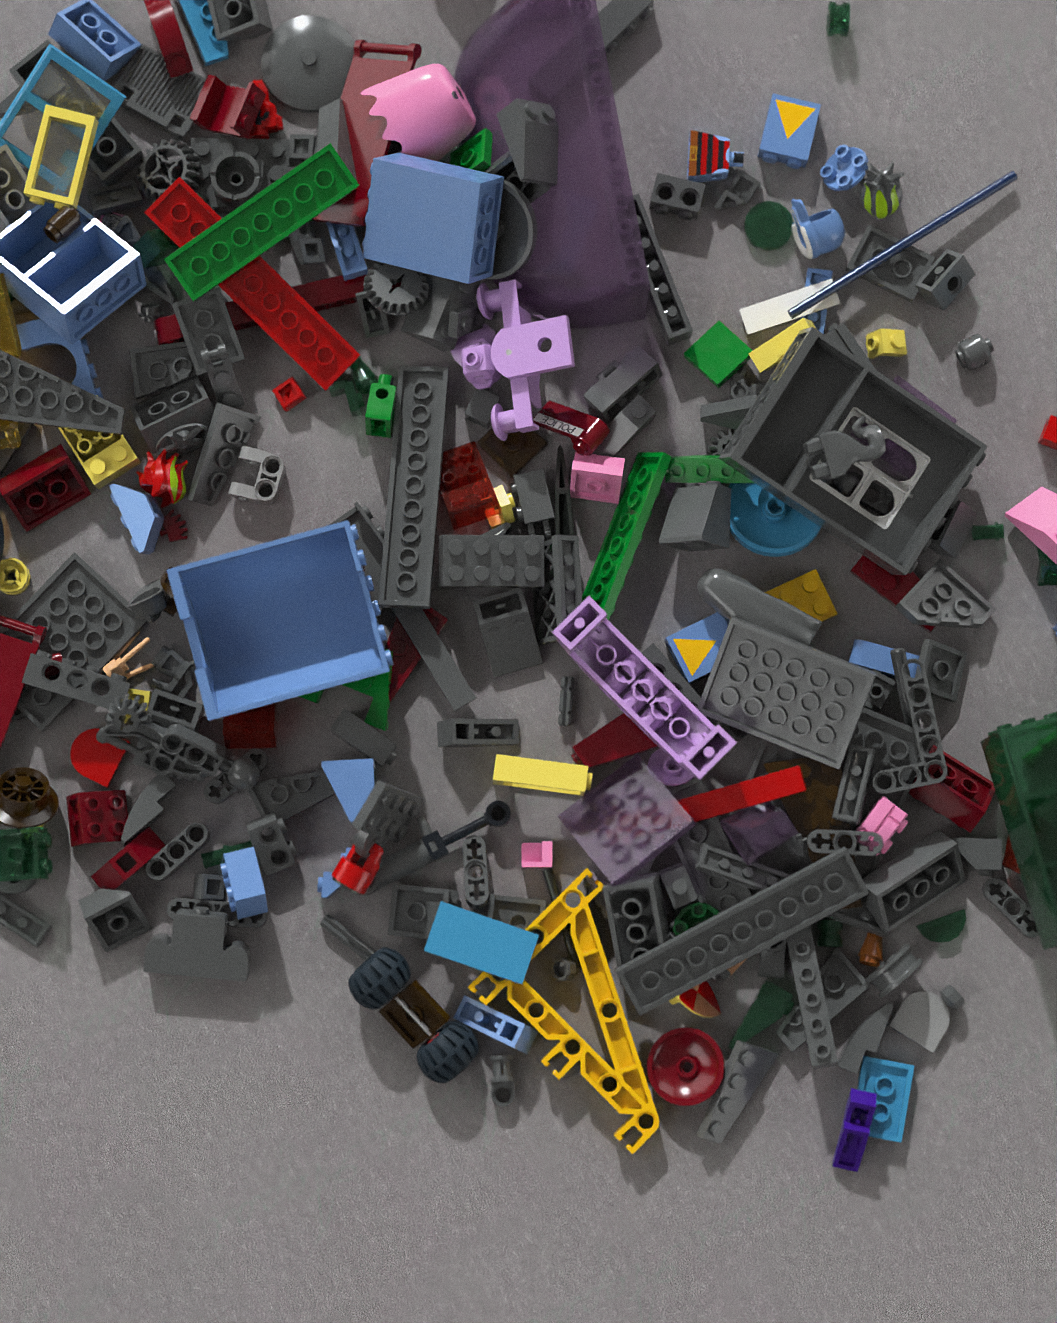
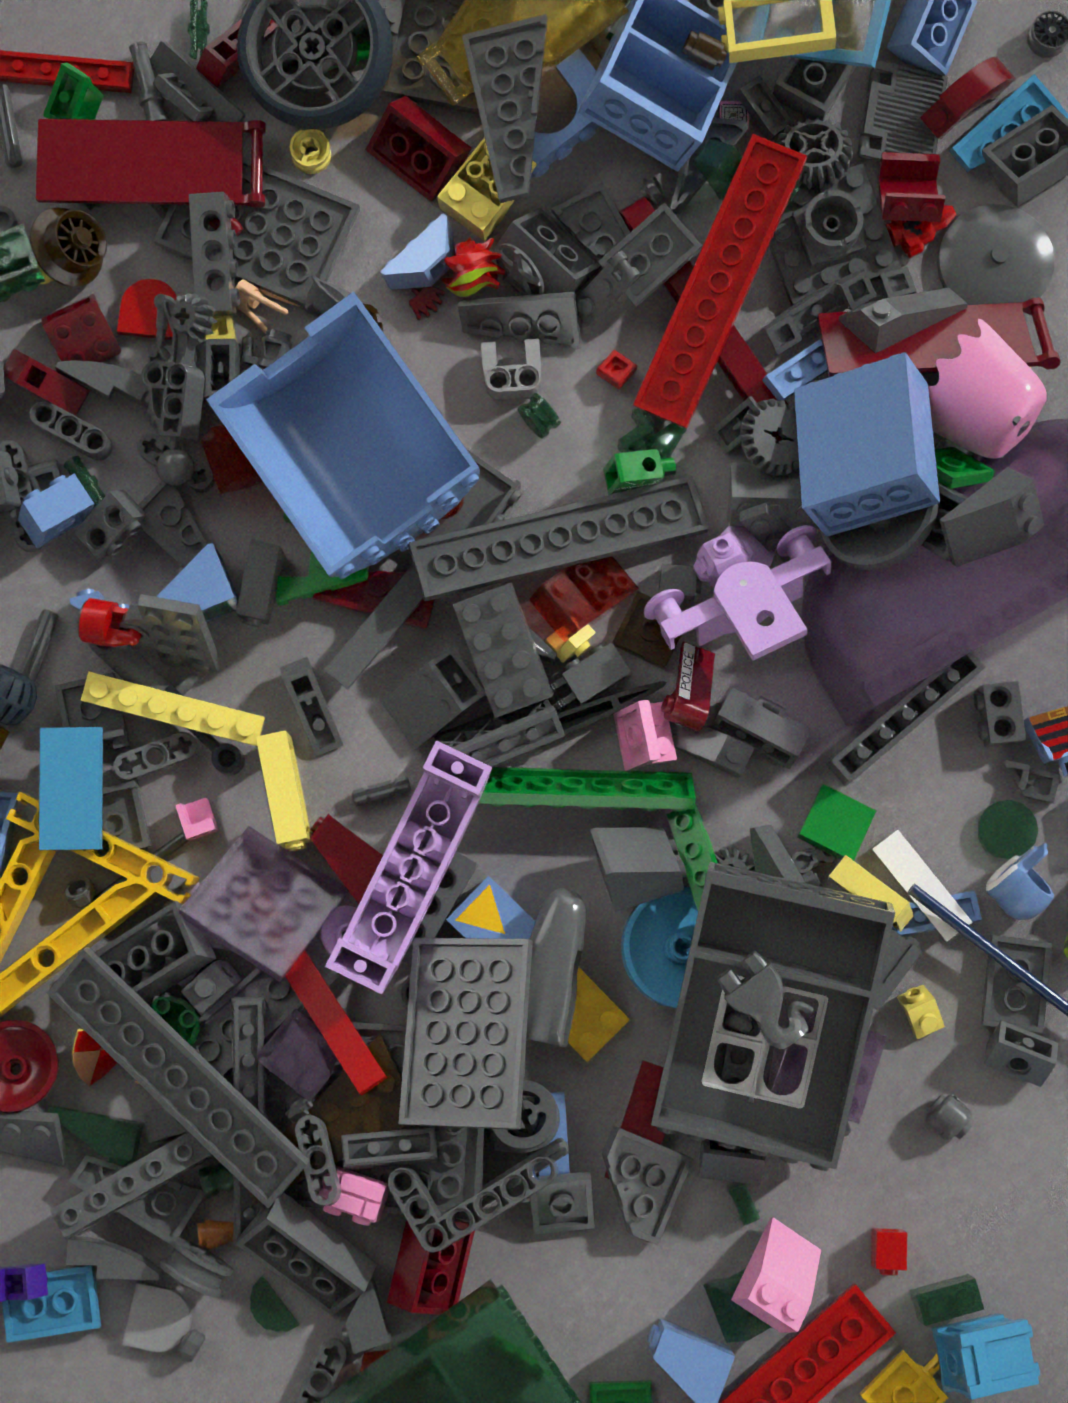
camera: 70 degrees right, 0 degrees up
(261, 222) = (789, 262): green plate -> none
(306, 468) = (539, 415): none -> clear green wheel
(443, 841) = (172, 708): none -> light yellow plate
(865, 652) = (546, 1107): none -> dark grey wheel

